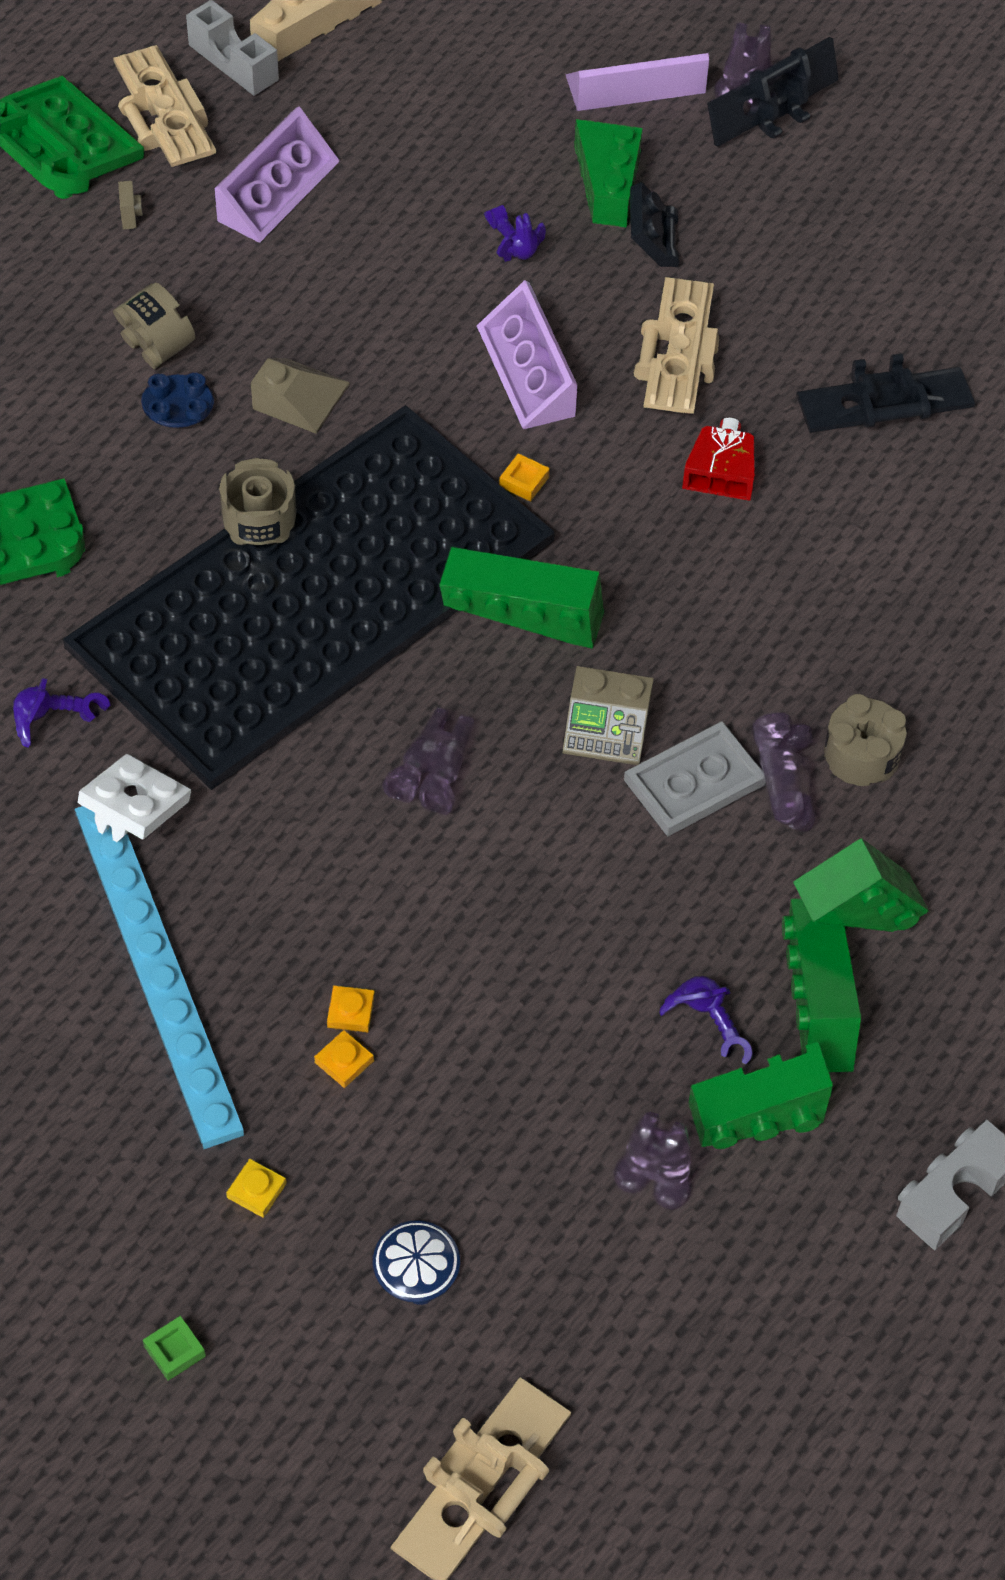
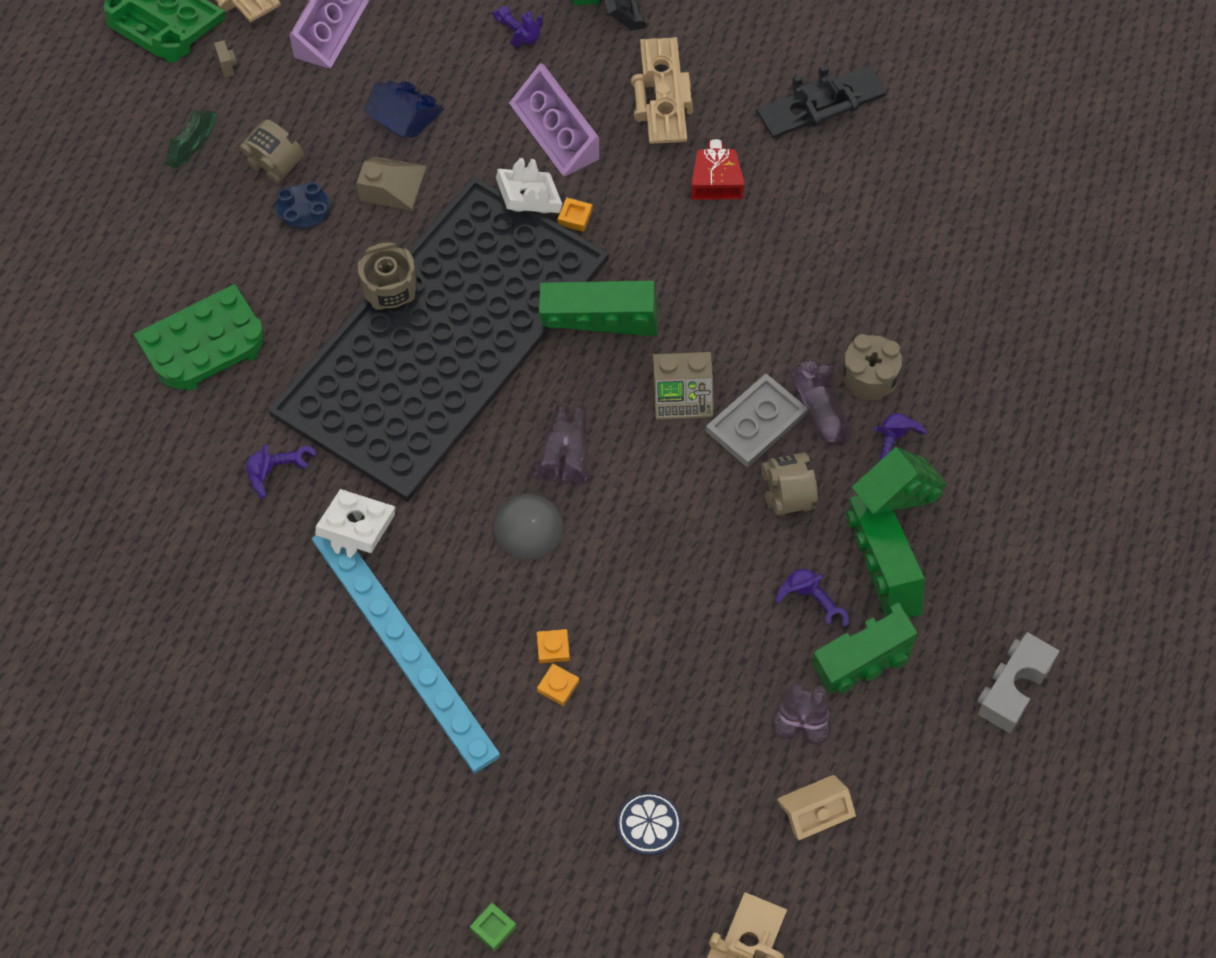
camera: 10 degrees left, 5 degrees up
(59, 292) = (191, 139): none -> clear green tile
(256, 1188) = (520, 795): yellow plate -> none
(336, 304) = (402, 107): none -> clear blue slope
(359, 852) = (528, 526): none -> dark grey piece
(481, 435) = (538, 186): none -> white piece
(647, 1289) = (817, 806): none -> tan panel
(716, 866) = (790, 484): none -> dark tan brick
(879, 822) = (895, 427): none -> dark purple piece

